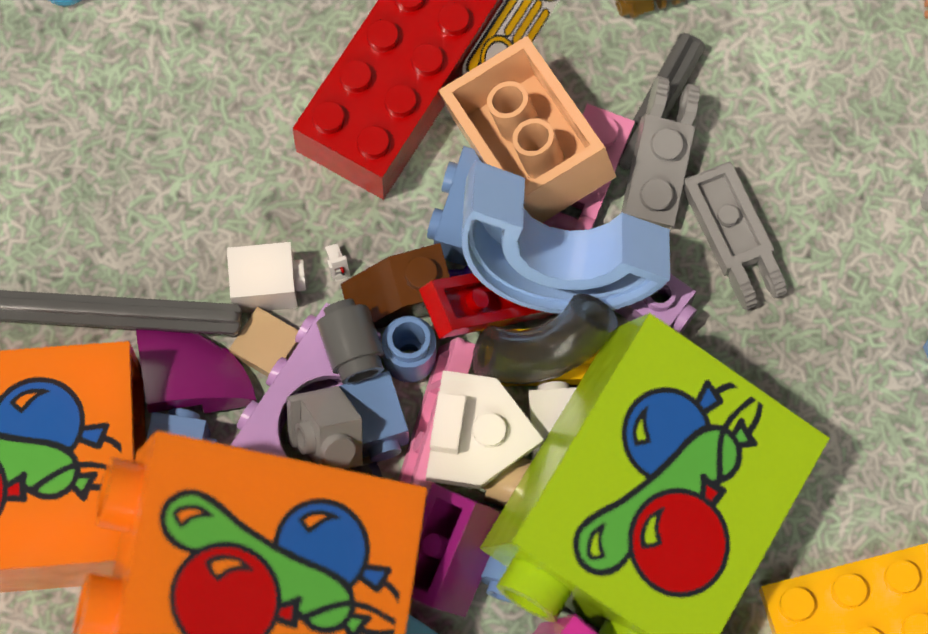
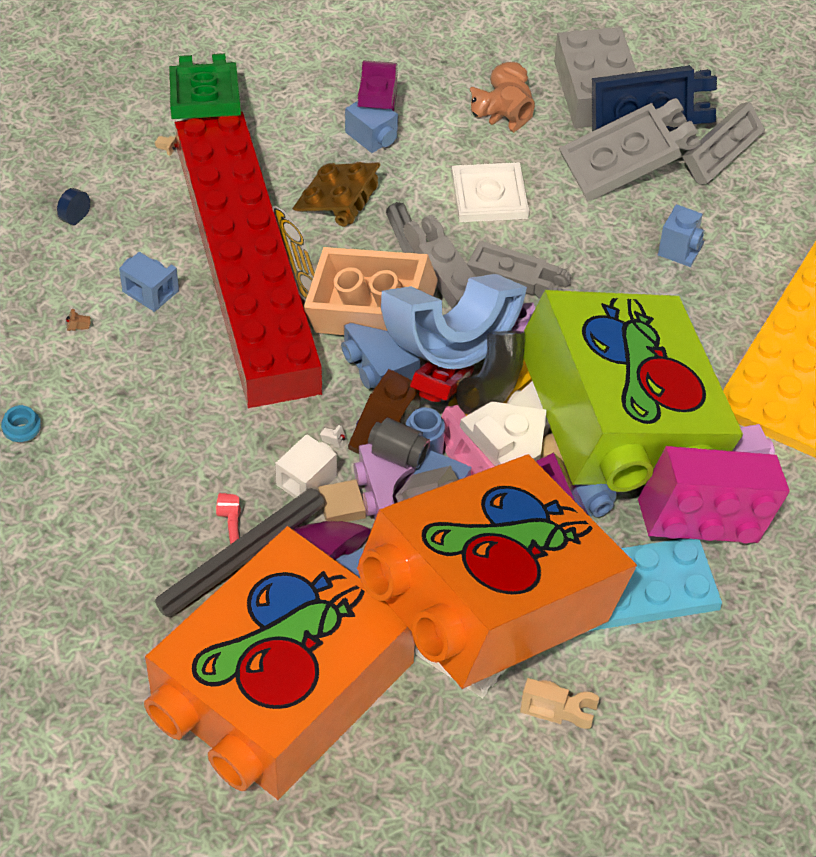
camera: 45 degrees left, 20 degrees down
(157, 254) = (229, 507): none -> coral hand
(821, 105) = (489, 192): none -> white tile

